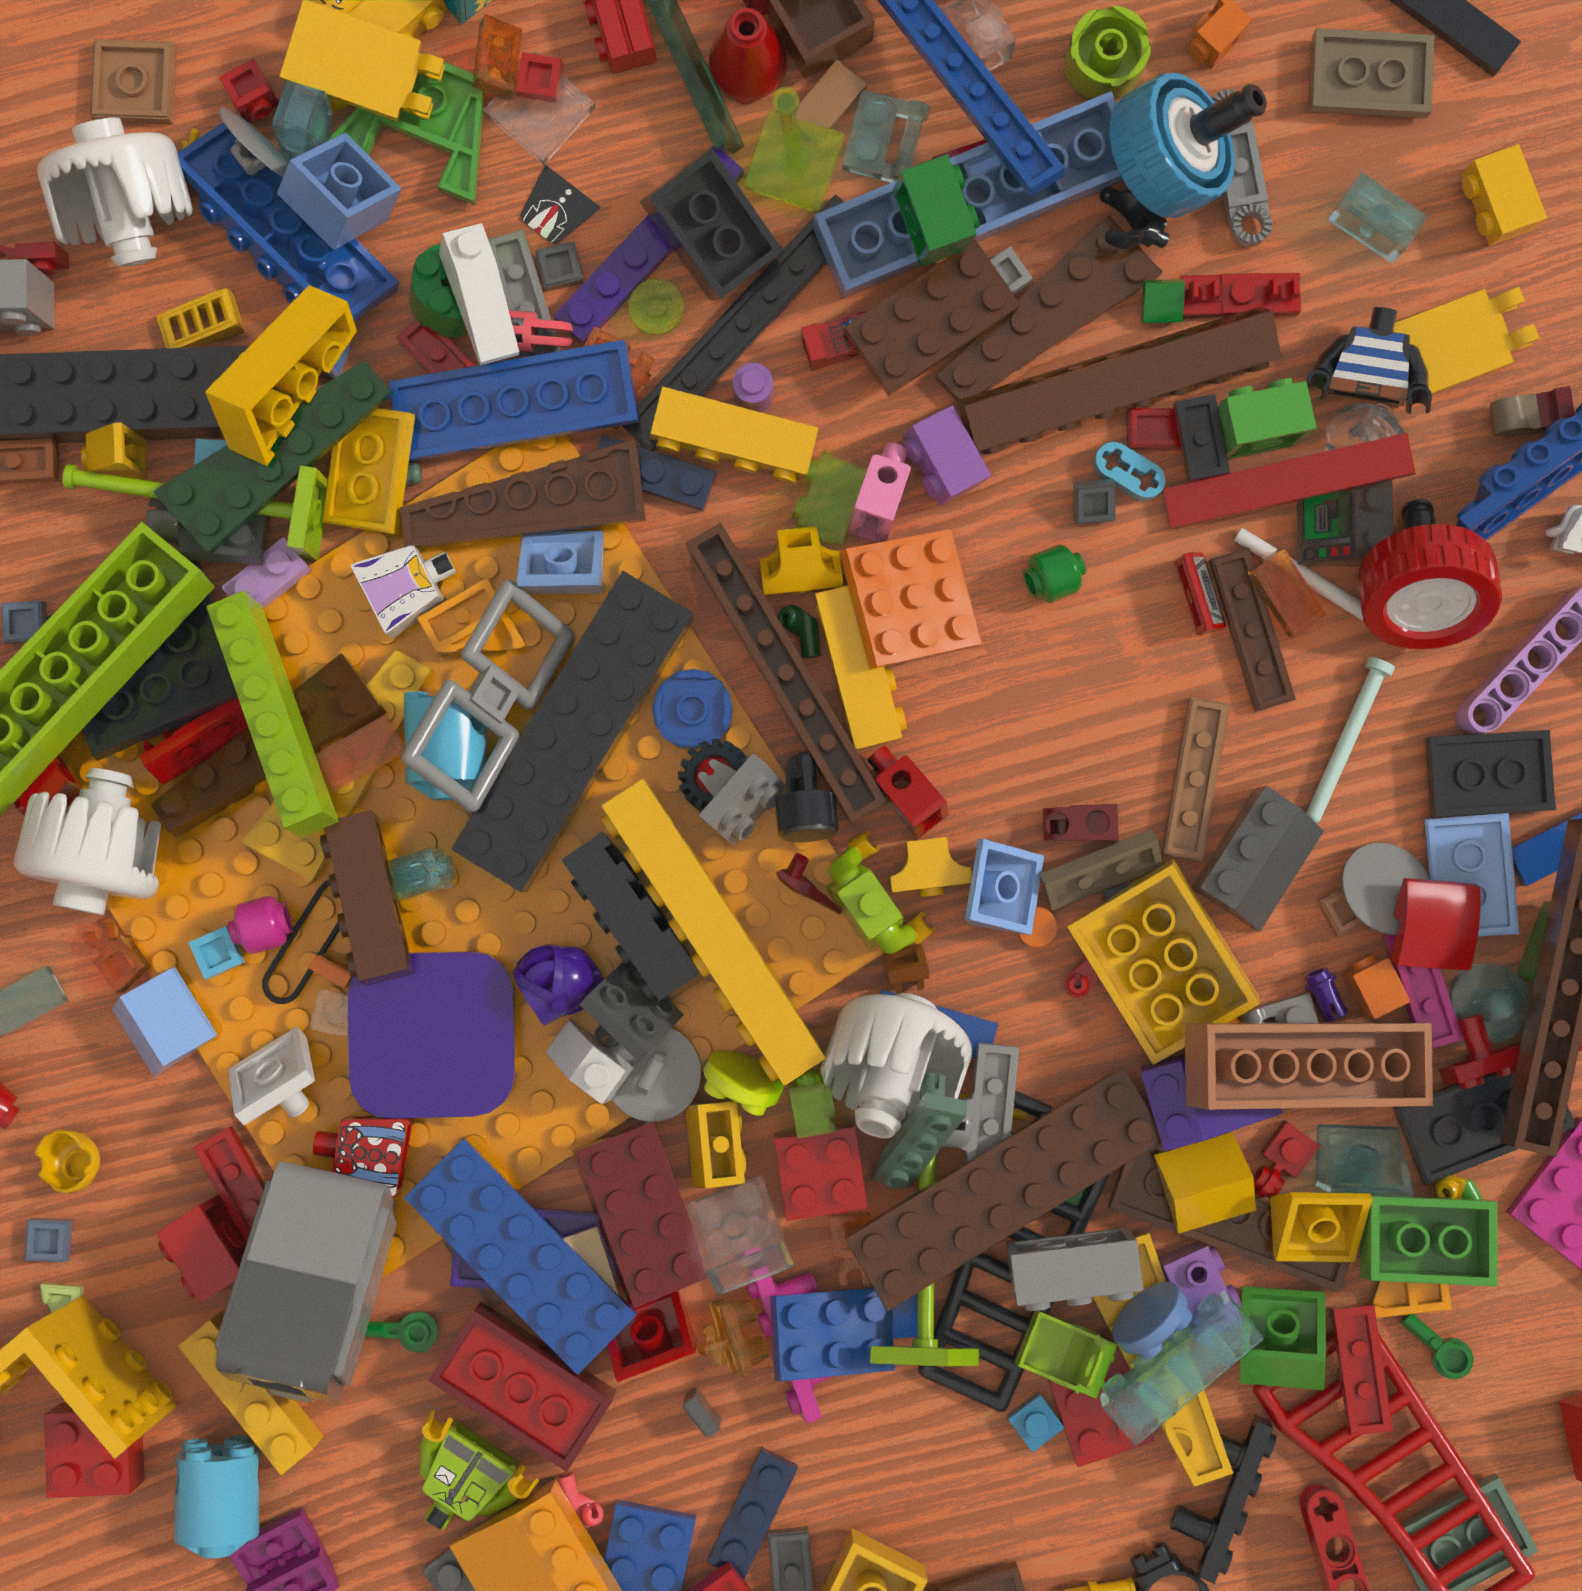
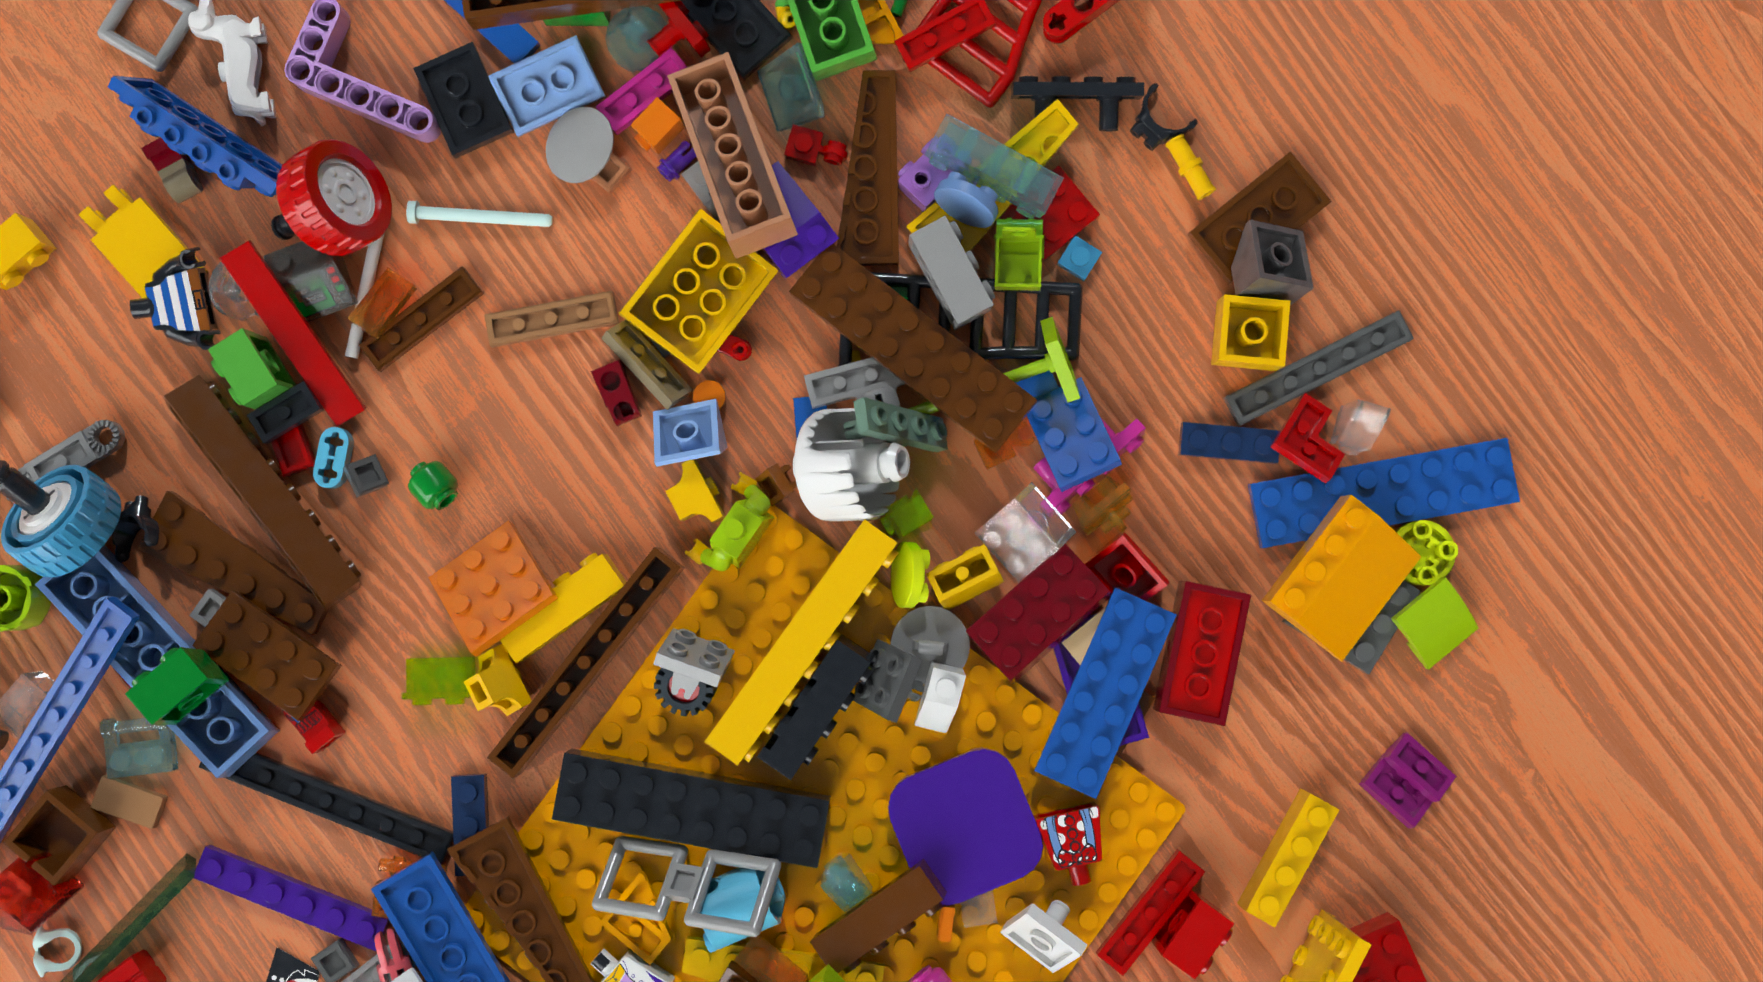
camera: 100 degrees left, 0 degrees up
(216, 1496) = (1375, 852): medium azure cylinder -> none
(294, 995) = (941, 965): black piece -> none
(307, 1283) = (1186, 848): piece -> none
(416, 1331) = (1195, 749): green plate -> none
(466, 1473) = (1284, 669): lime torso -> none
(556, 980) = (886, 747): dark purple helmet -> none
(562, 563) = (566, 867): light blue slope -> none
(586, 1508) = (1275, 567): coral arm -> none
(656, 307) = (339, 873): clear neon green piece -> none
(692, 708) = (641, 723): blue tile -> none
(702, 1413) = (1169, 509): dark grey tile -> none
(711, 225) = (256, 855): black brick -> none
(733, 434) = (416, 775): yellow brick -> none
(747, 57) = (112, 879): red cone -> none
(753, 387) = (374, 772): medium lavender brick -> none
(793, 156) = (178, 813): clear neon green tile -> none
(794, 880) = (743, 591): dark red bar -> none
(803, 626) = (546, 661): dark green arm -> none
(805, 811) = (685, 607): black piece -> none
(820, 1173) = (955, 489): red brick -> none
(880, 494) = (420, 642): bright pink torso -> none
(918, 804) = (649, 523): red torso -> none
(945, 456) = (372, 603): medium lavender brick -> none
(1162, 301) = (190, 481): green tile -> none
(1200, 593) = (407, 369): red slope -> none
(1206, 1182) = (850, 198): yellow slope -> none
(1233, 293) = (165, 431): red plate -> none
(1258, 857) = (592, 249): dark grey slope -> none
(1293, 1338) = (942, 90): bright green slope -> none
(1318, 1226) = (850, 103): yellow slope -> none
(1377, 217) = (64, 341): clear light blue brick -> none
(1436, 924) = (591, 98): red slope -> none

